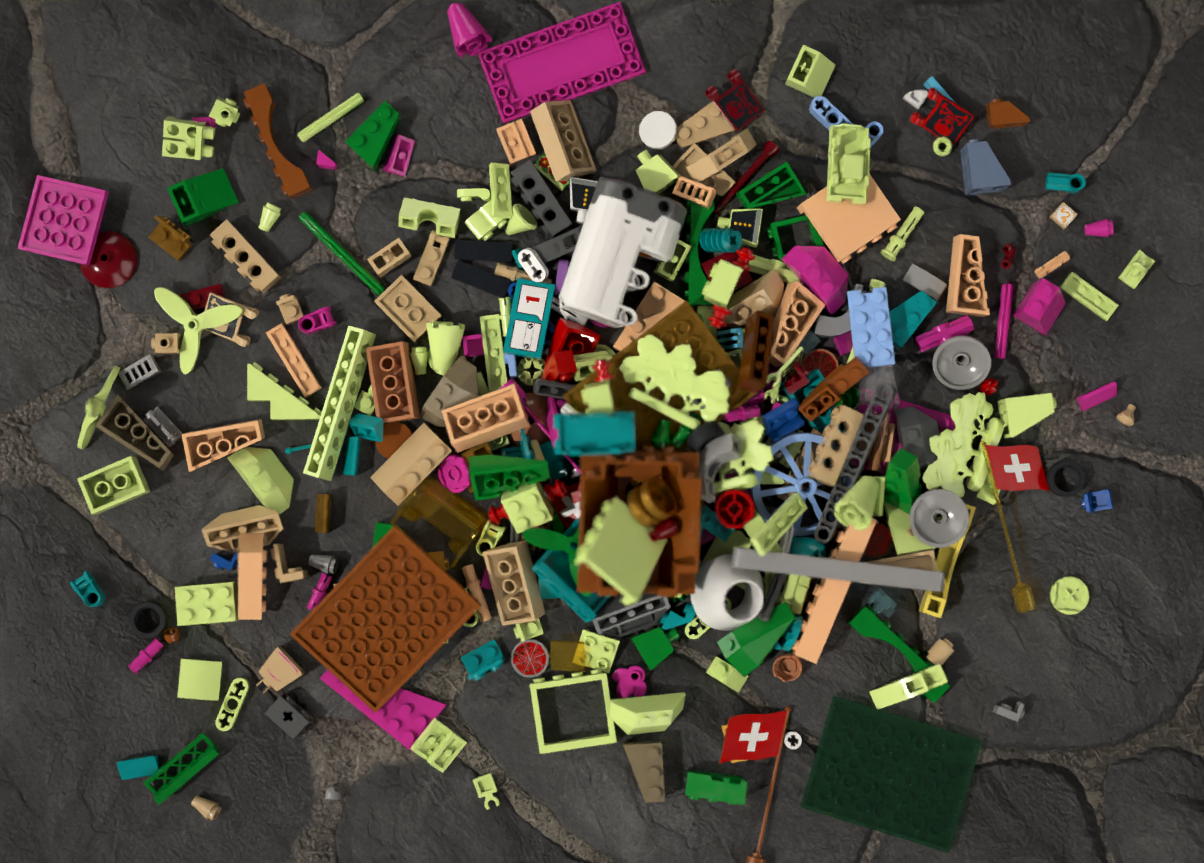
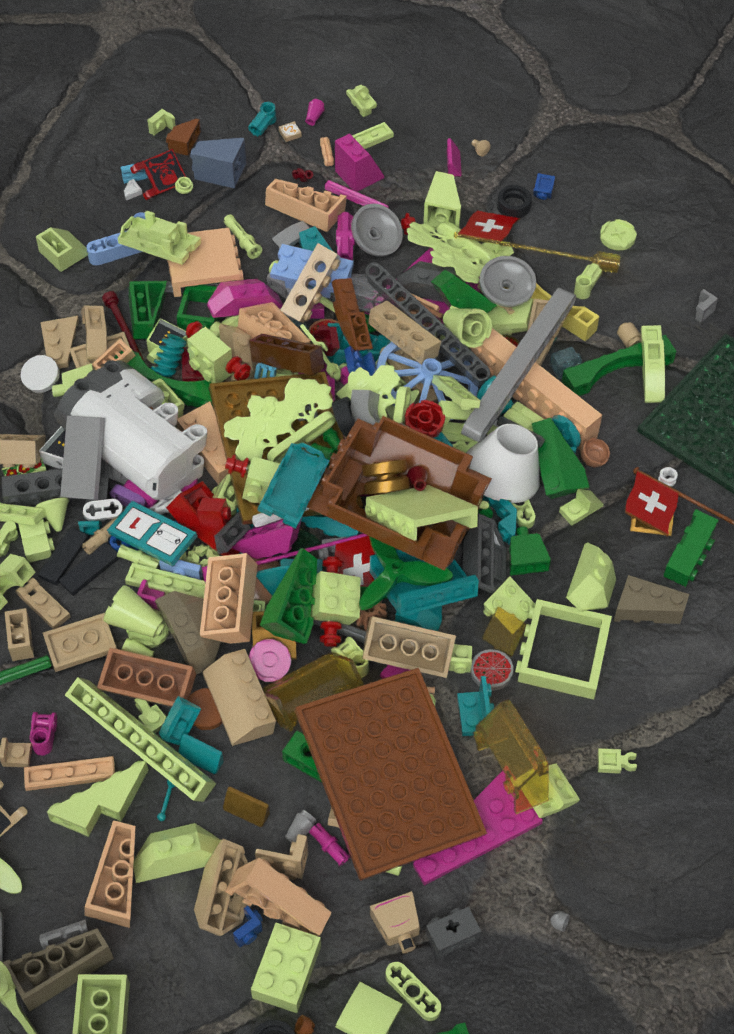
camera: 65 degrees left, 30 degrees down
(441, 709) = (517, 754): none -> clear yellow windscreen
(565, 226) = (82, 457): none -> light grey tile
(628, 684) = (553, 591): dark pink plate -> none
(737, 104) = (51, 309): flag -> none
(742, 413) = (338, 389): dark pink axle -> none
(818, 331) = (300, 289): none -> tan brick
(994, 587) = (587, 280): none -> yellowish green piece
(1014, 80) = (160, 121): none -> yellowish green bracket

